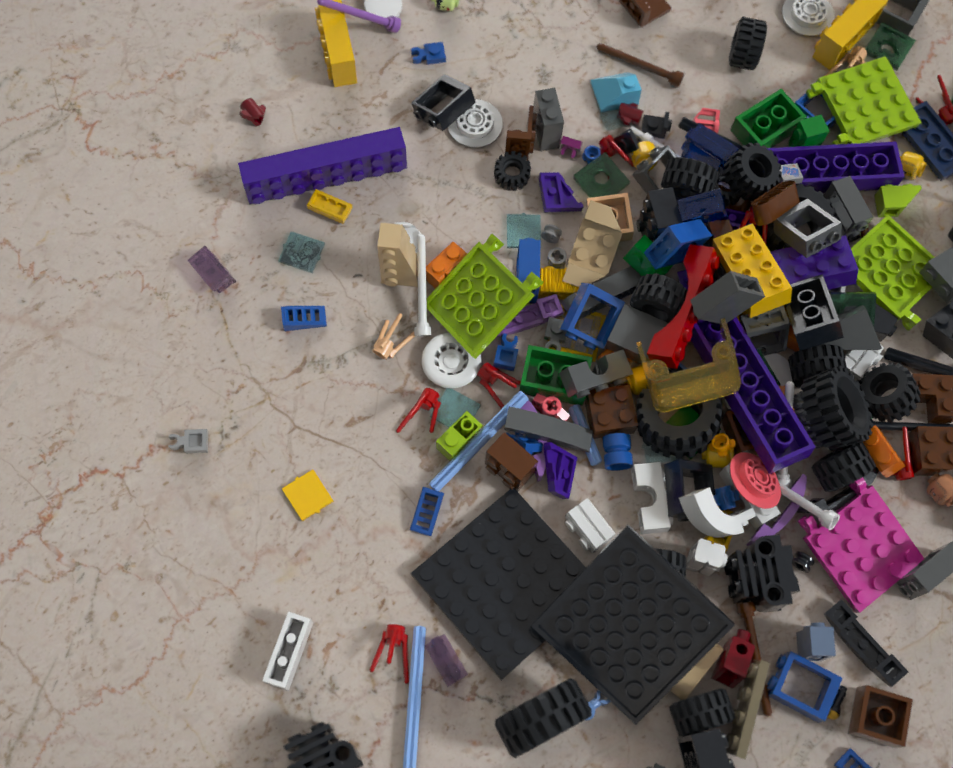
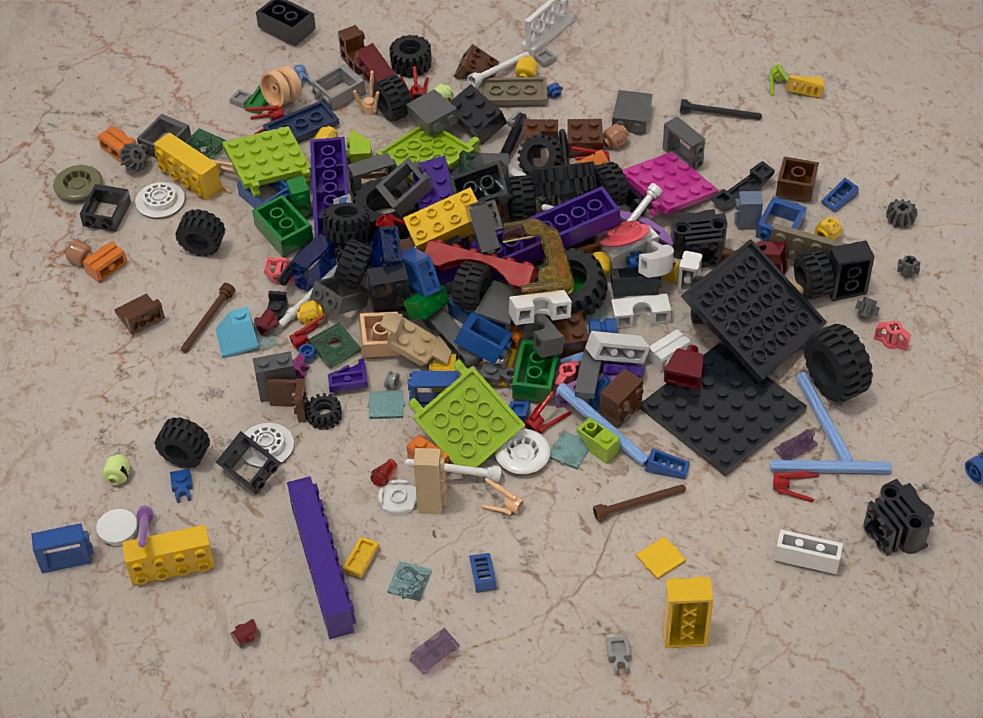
camera: 85 degrees left, 20 degrees down
(201, 500) = (687, 612): none -> yellow brick
(367, 438) = (602, 511): none -> reddish brown piece
(426, 401) = (564, 466): red plant -> none
(430, 226) = (382, 474): none -> clear red cone
(465, 42) = (182, 442): none -> black tyre
(486, 700) = (823, 417): none -> light blue axle
(554, 538) = (685, 368): none -> dark red torso
(583, 462) = (617, 347): none -> white brick
(622, 351) = (553, 303): none -> white arch
(627, 141) = (301, 319): black bracket -> none
(721, 439) = (597, 250): light orange plate -> none
(775, 202) = (382, 204): reddish brown beam -> none
(791, 747) = (829, 228): none -> yellow head

